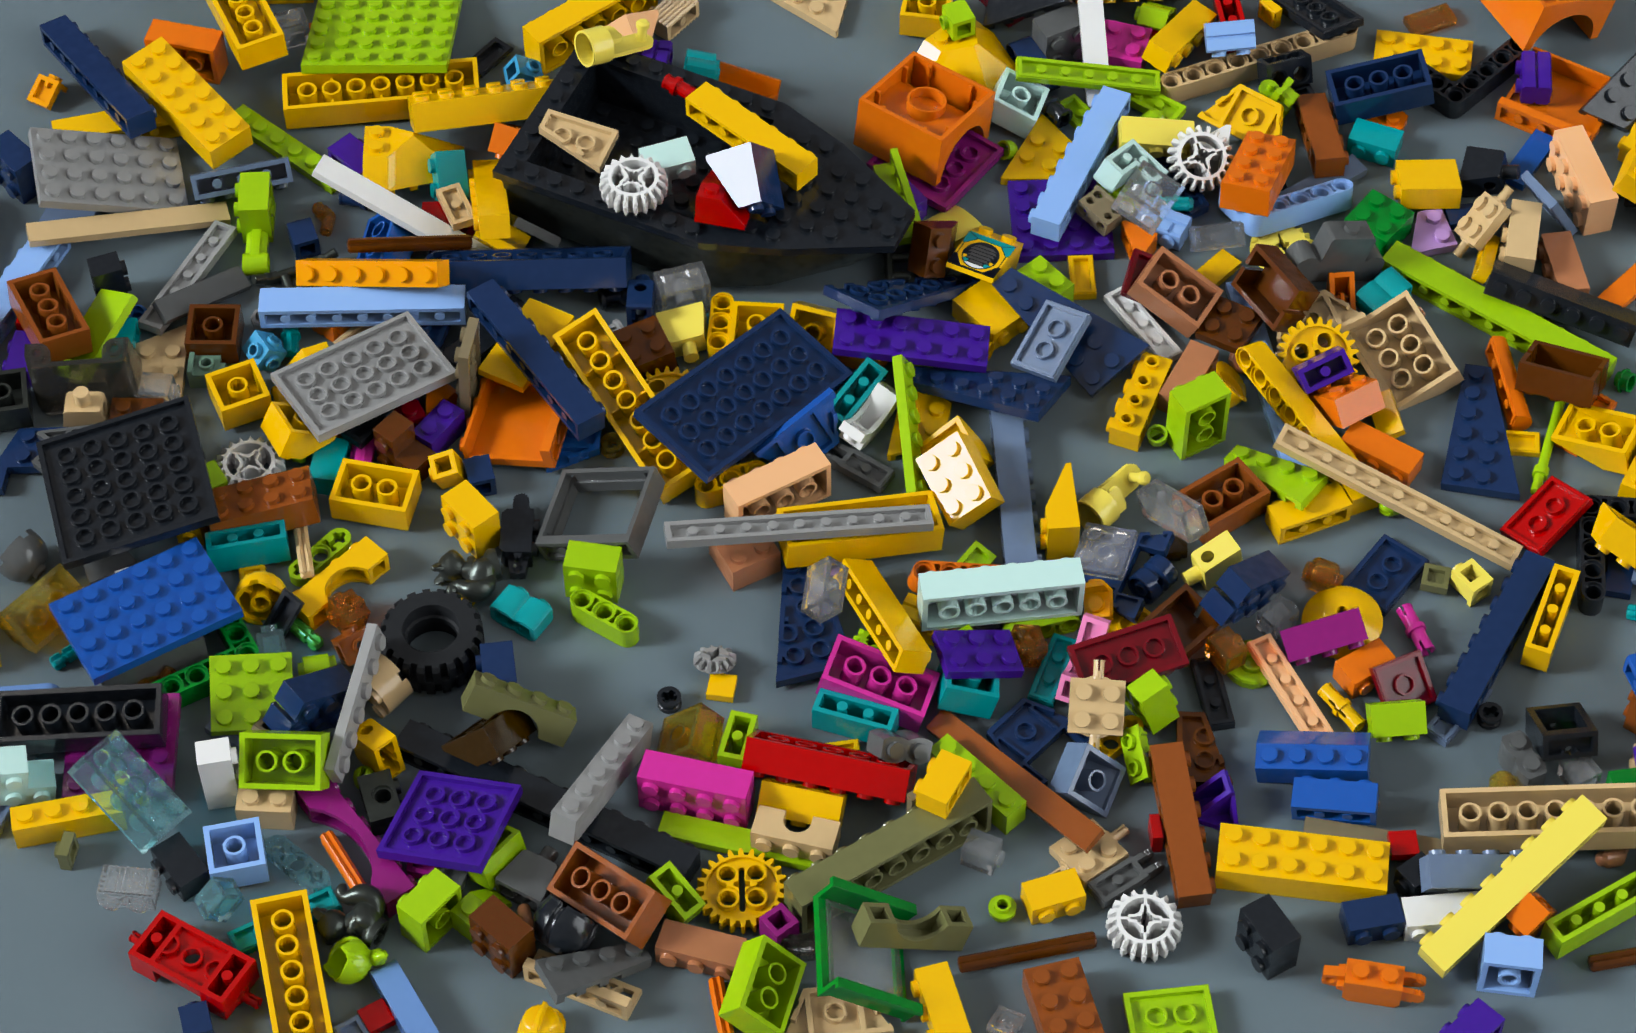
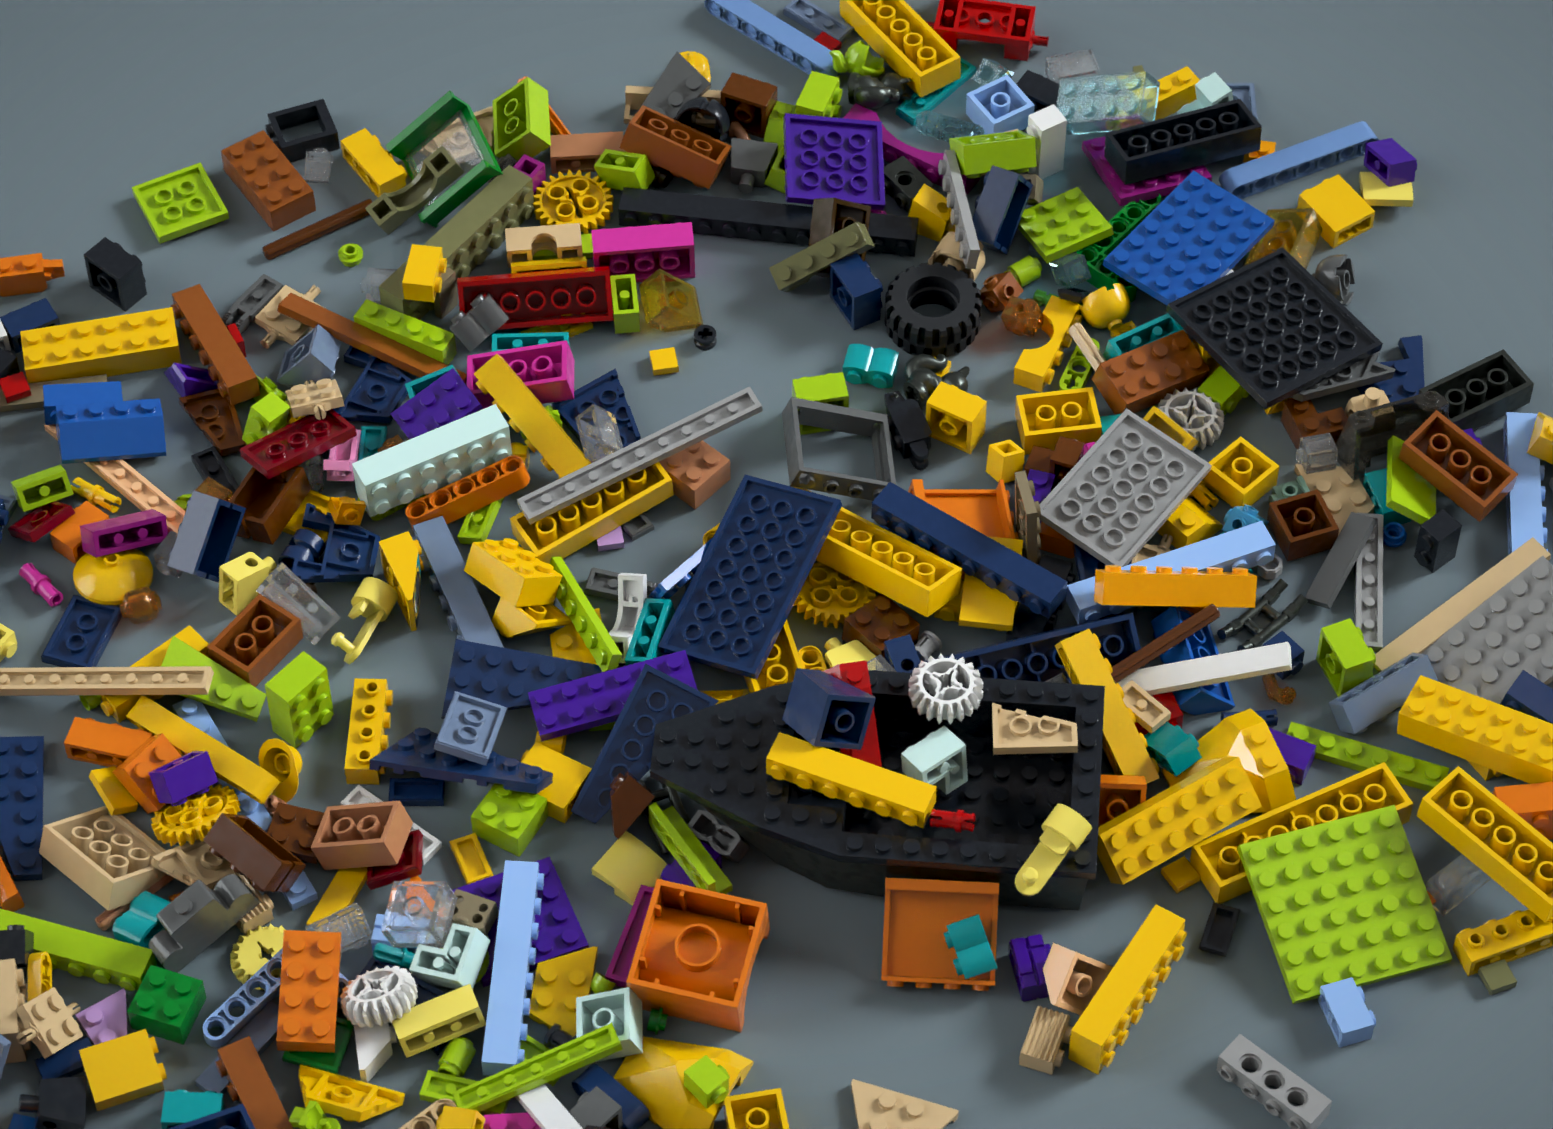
camera: 160 degrees right, 0 degrees up
(256, 258) = (1312, 619): lime piece -> none
(341, 859) = (906, 135): orange axle -> none
(480, 474) = (974, 471): dark blue brick -> none
(522, 68) = (1166, 896): dark azure brick -> none
(600, 779) = (724, 228): light grey brick -> none
(614, 622) = (776, 377): lime beam -> none
(714, 660) = (670, 383): light grey gear -> none
(786, 482) = (682, 524): light nougat brick -> none
(986, 254) = (574, 815): slope -> none
(1053, 896) = (309, 267): yellow brick -> none
(1106, 550) = (353, 553): clear plate -> none
(1127, 930) = (240, 266): white gear -> none
(1154, 433) = (341, 701): lime hinge -> none
(1194, 361) = (323, 768): nougat brick -> none
(1435, 579) = (30, 638): olive plate -> none

